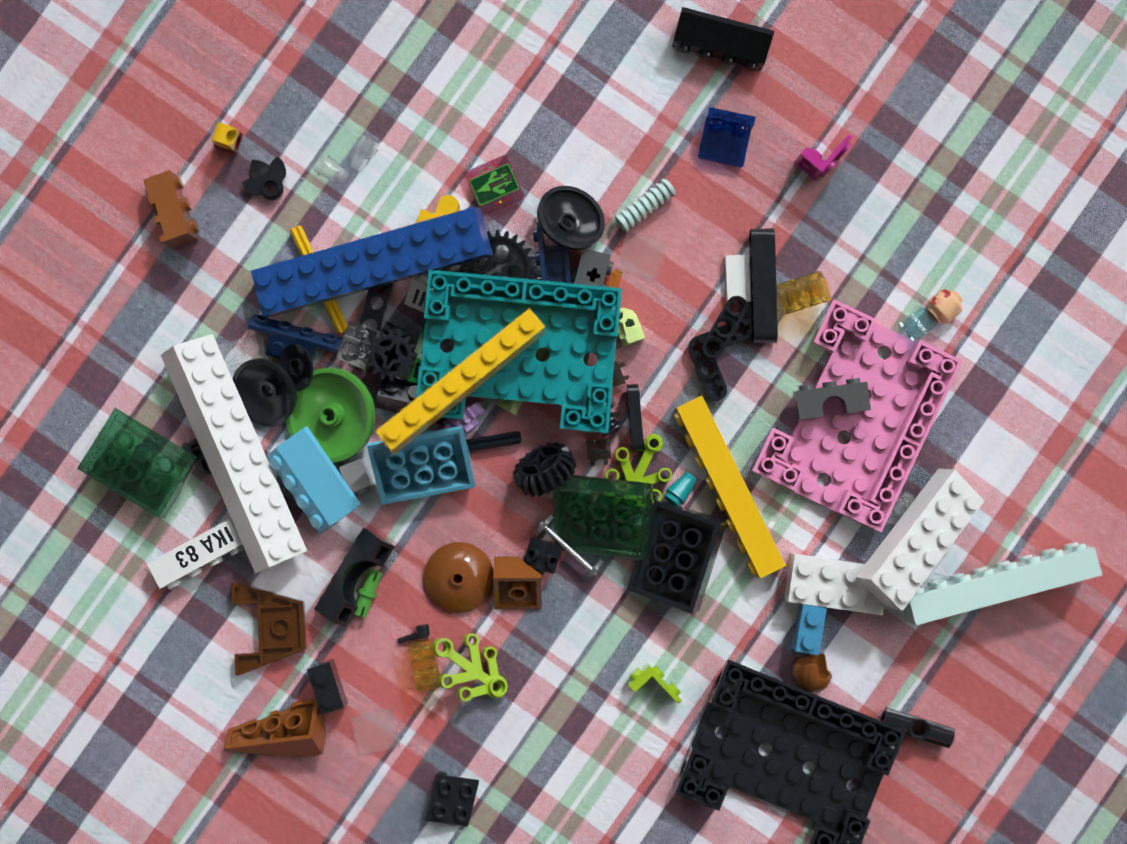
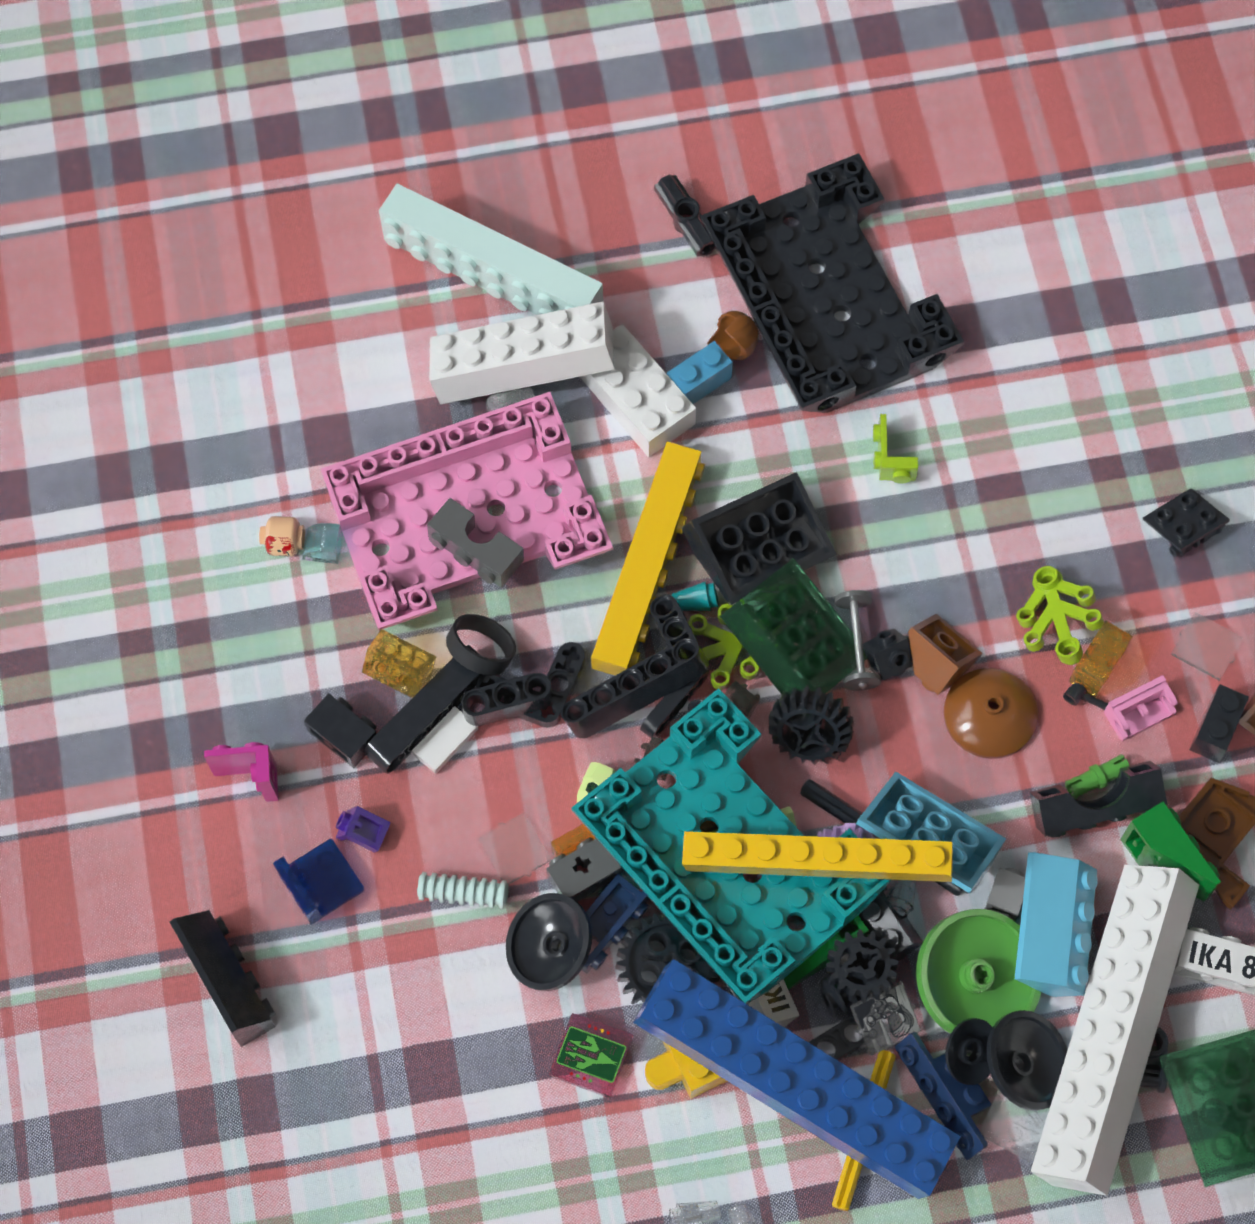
camera: 135 degrees left, 20 degrees down
(298, 580) = (1161, 842): none -> green slope
(378, 656) = (1141, 708): none -> bright pink hinge
(661, 415) = (644, 681): none -> black beam
(731, 186) = (362, 828): none -> dark purple bracket
(773, 364) = (472, 660): none -> black tyre
(798, 228) = (340, 729): none -> black brick

